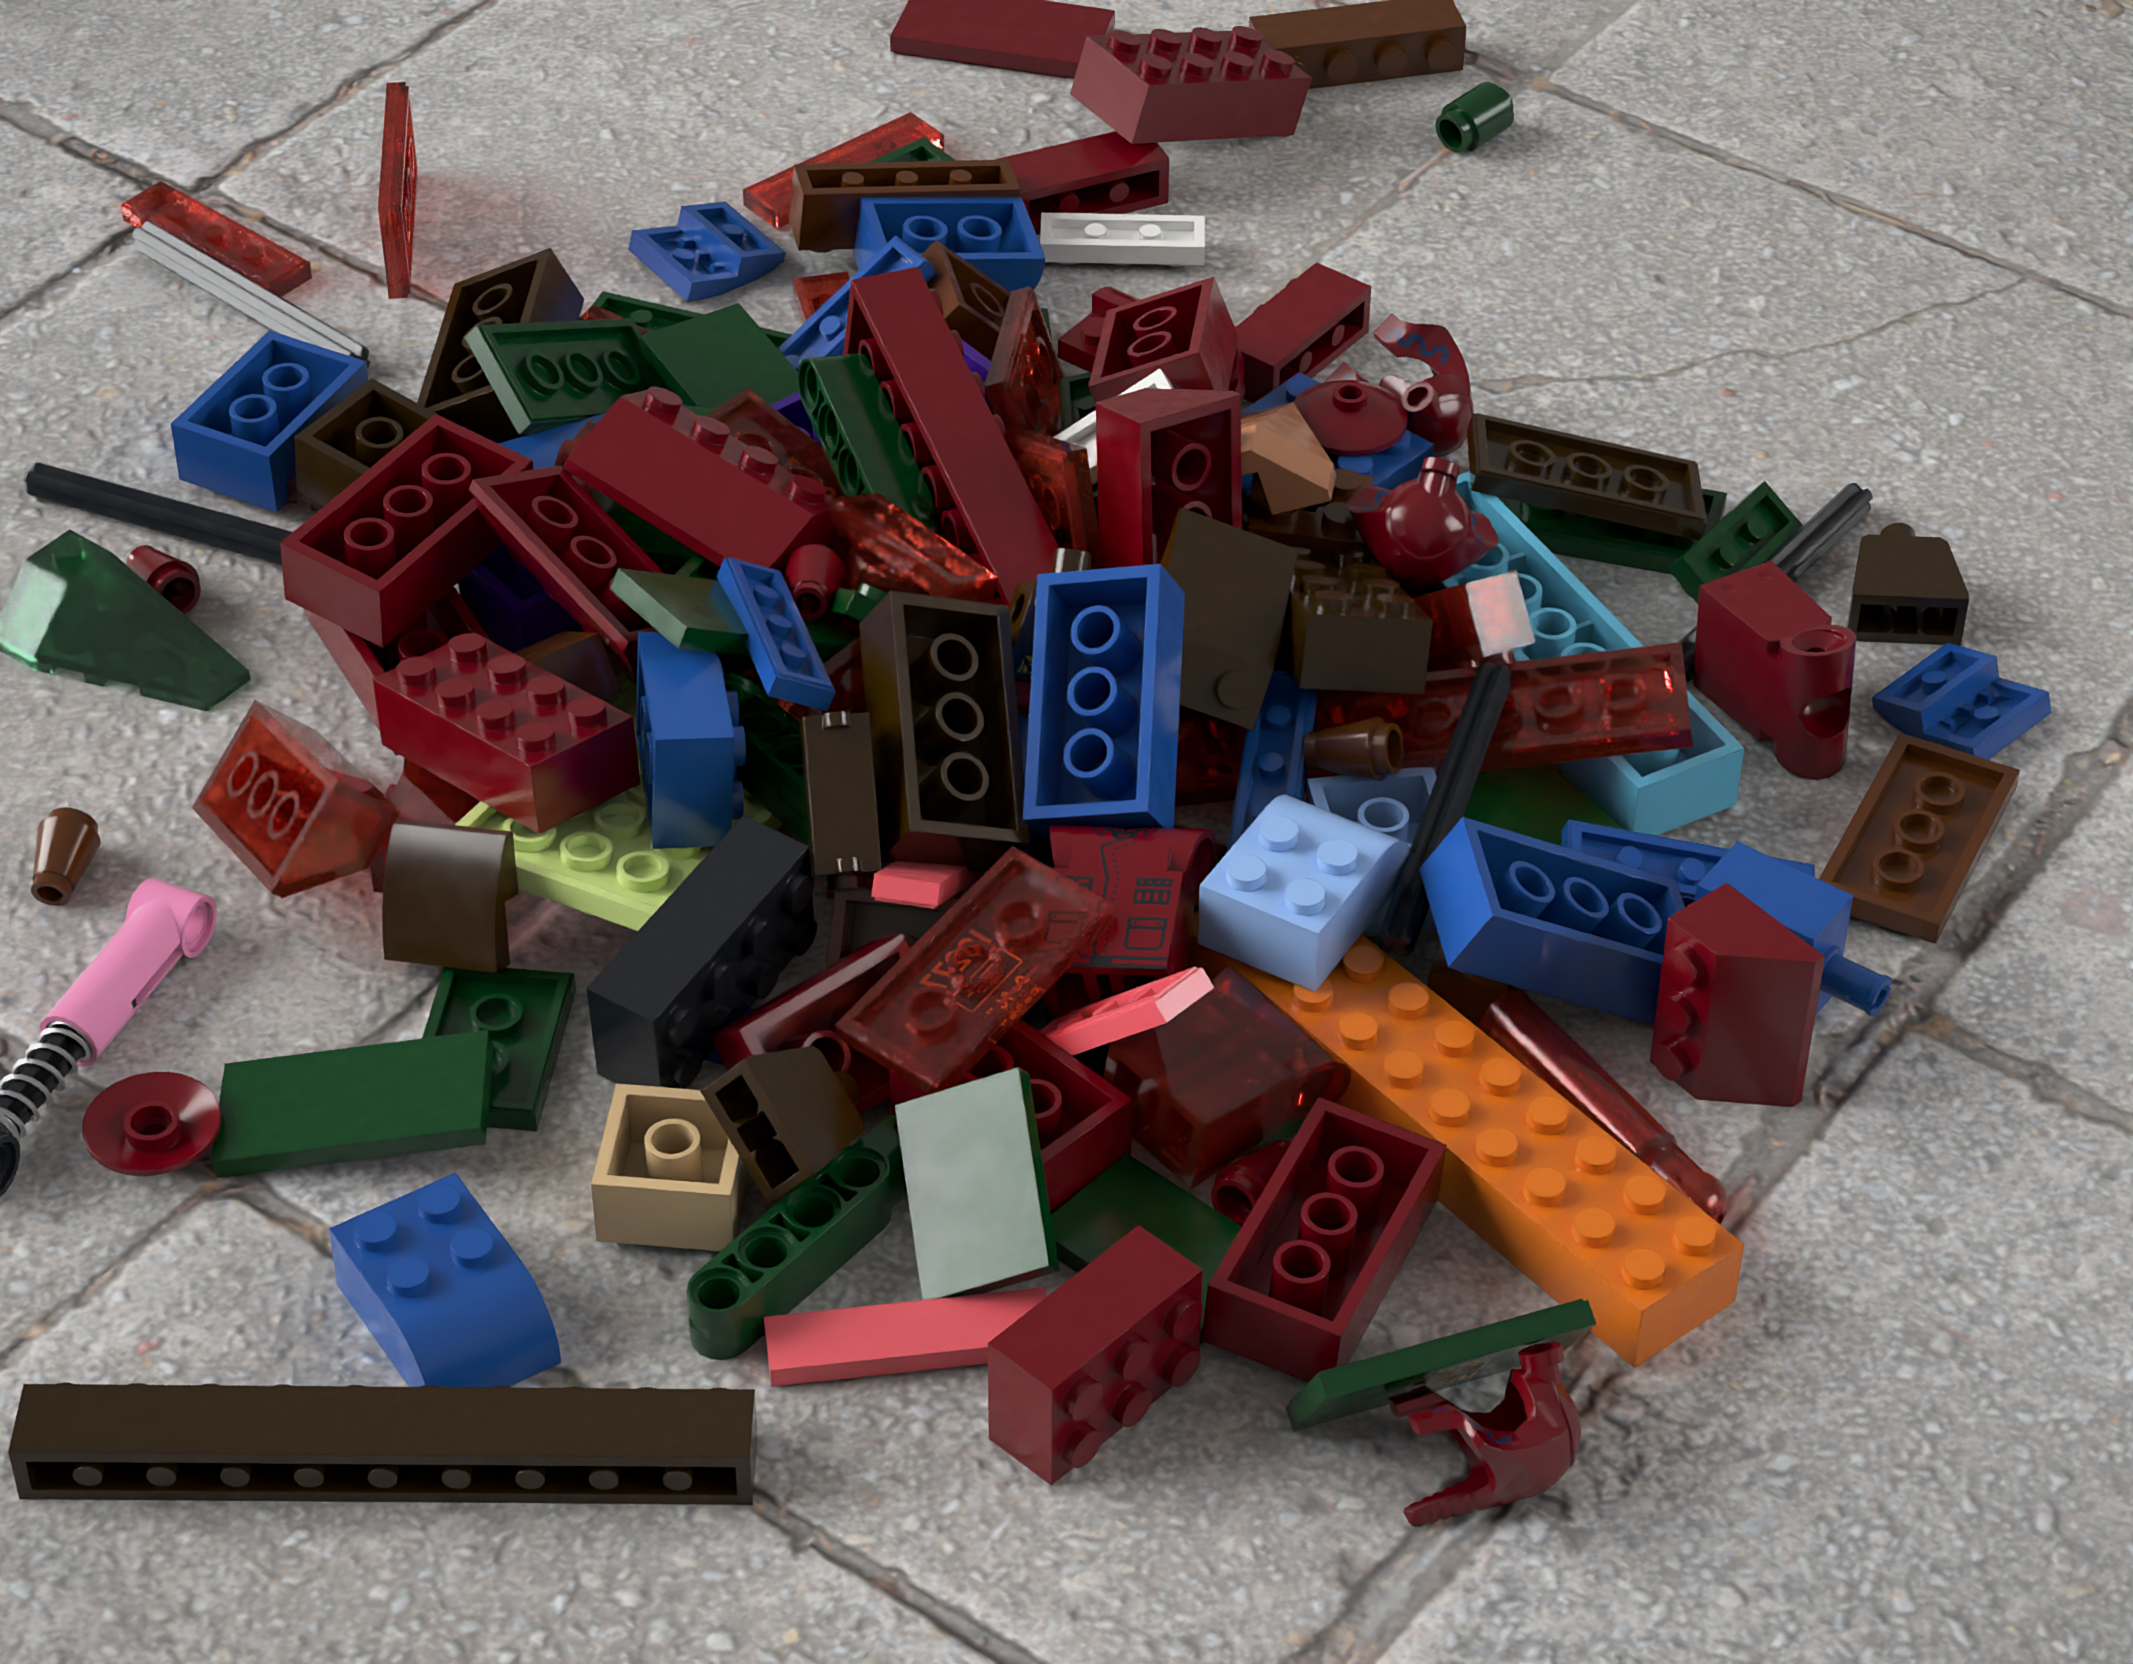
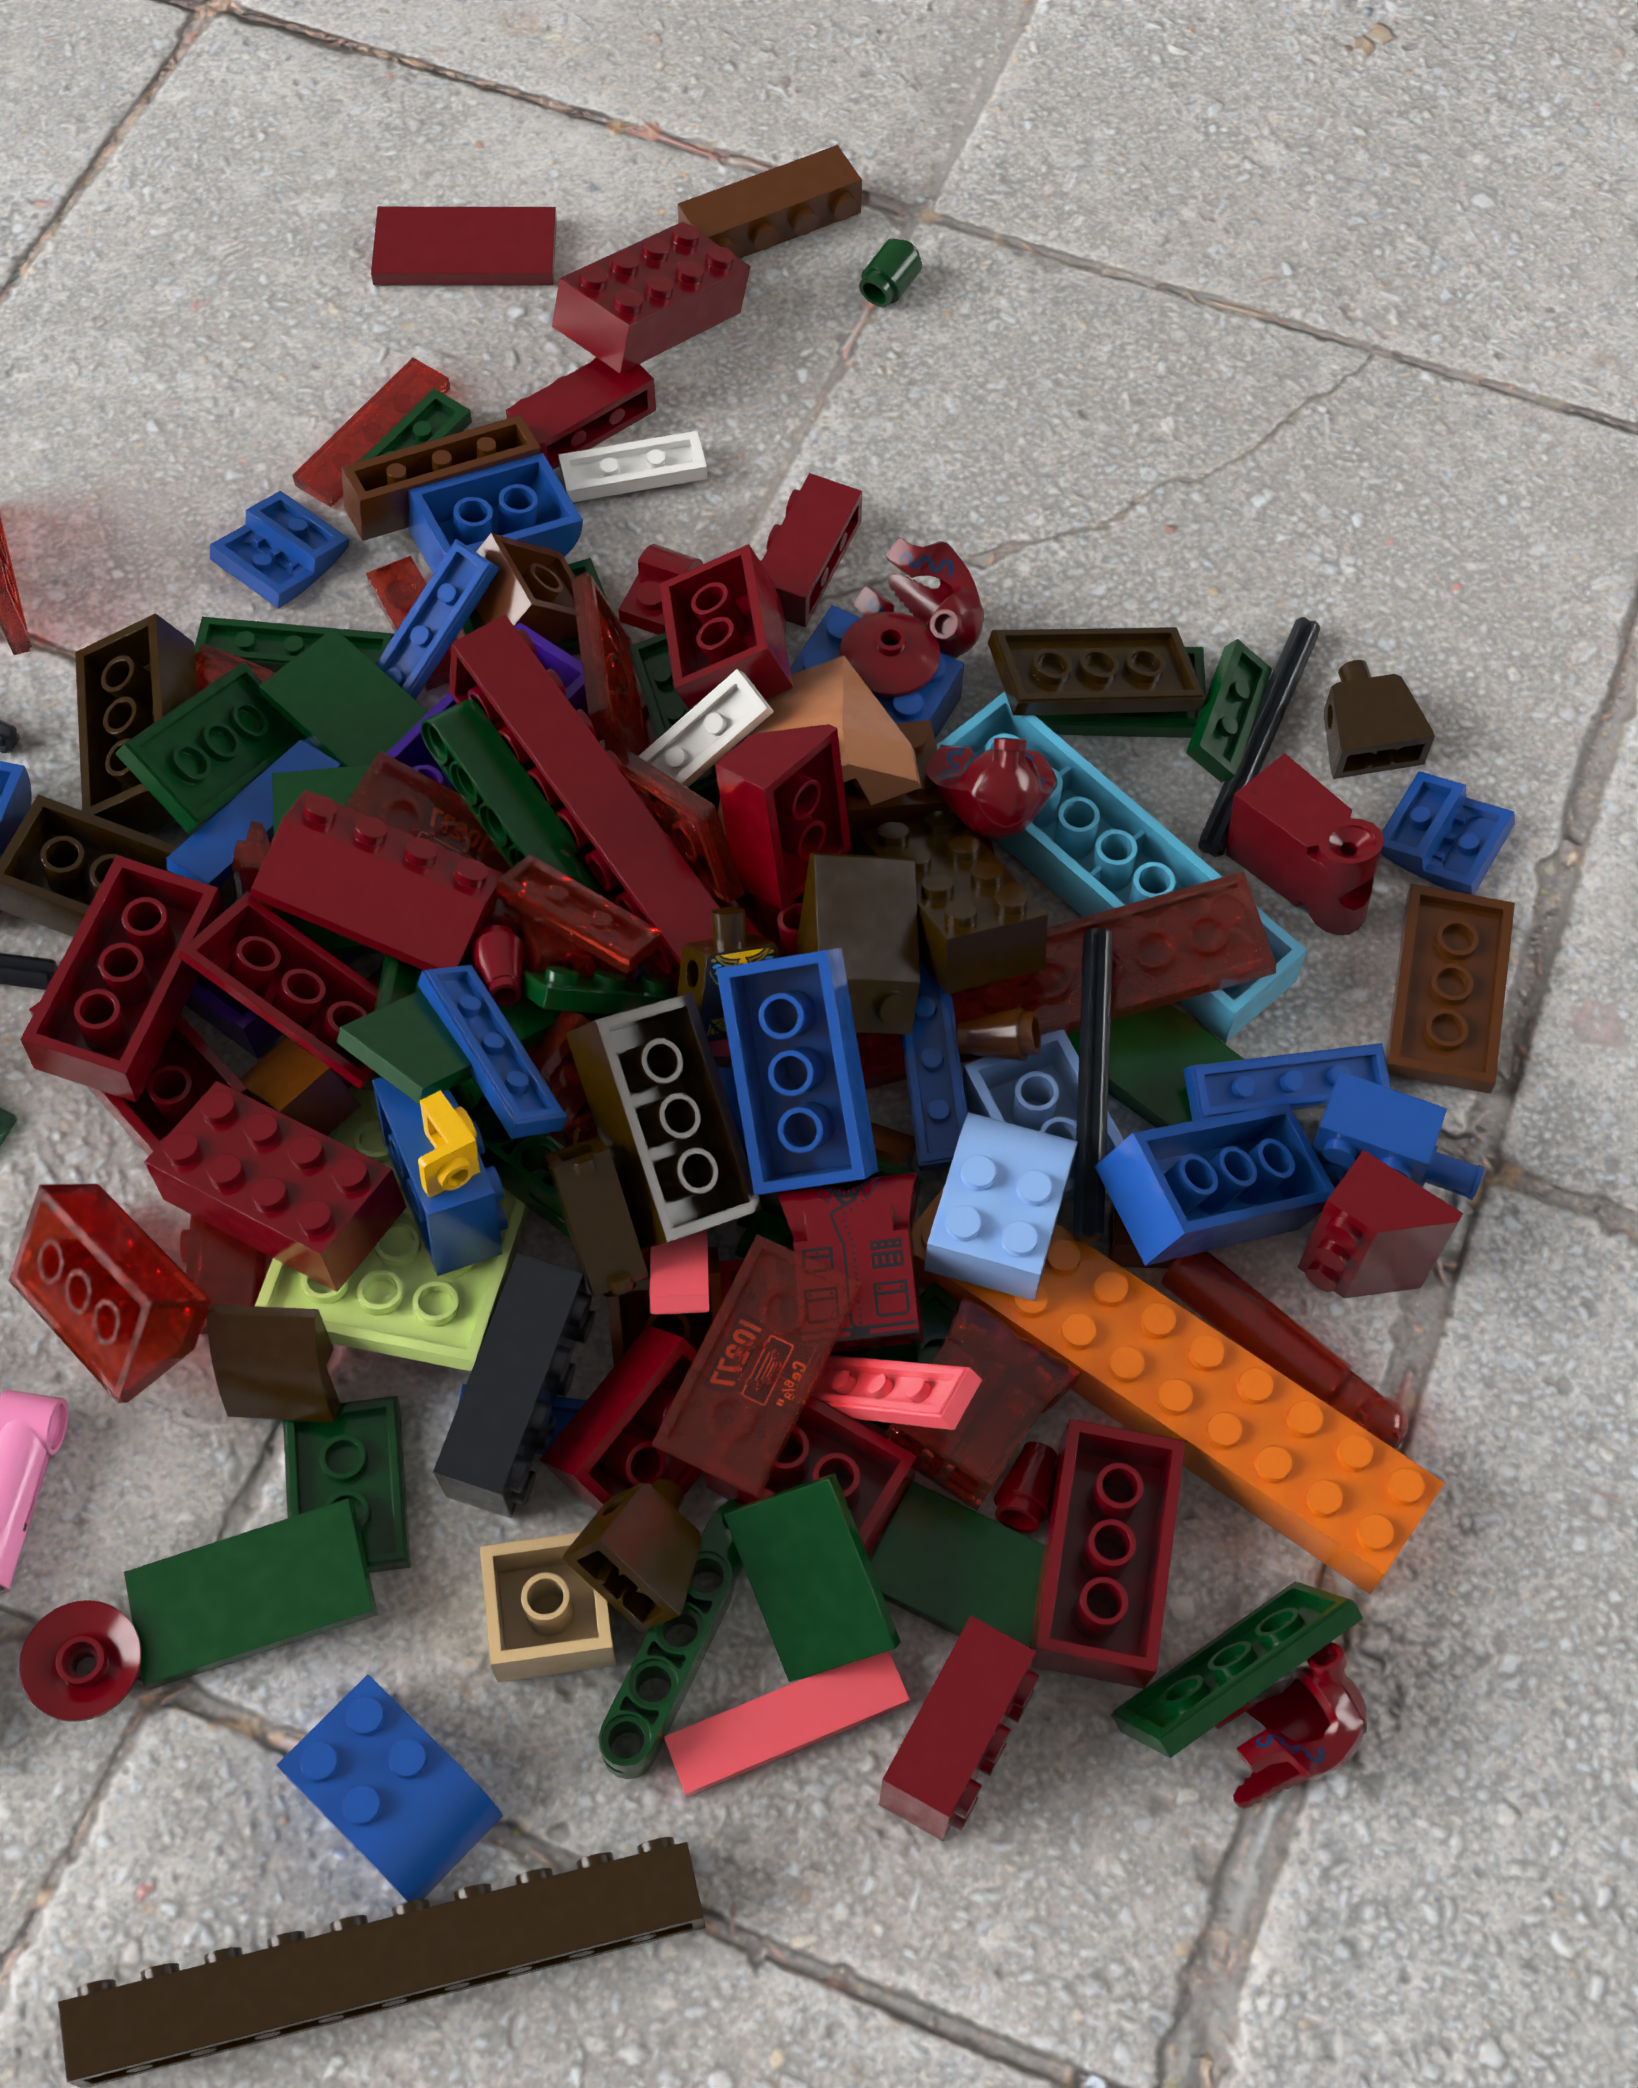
camera: 15 degrees left, 20 degrees up
(696, 684) = (455, 1146): none -> yellow bracket
(1477, 622) = (1058, 868): brick -> none

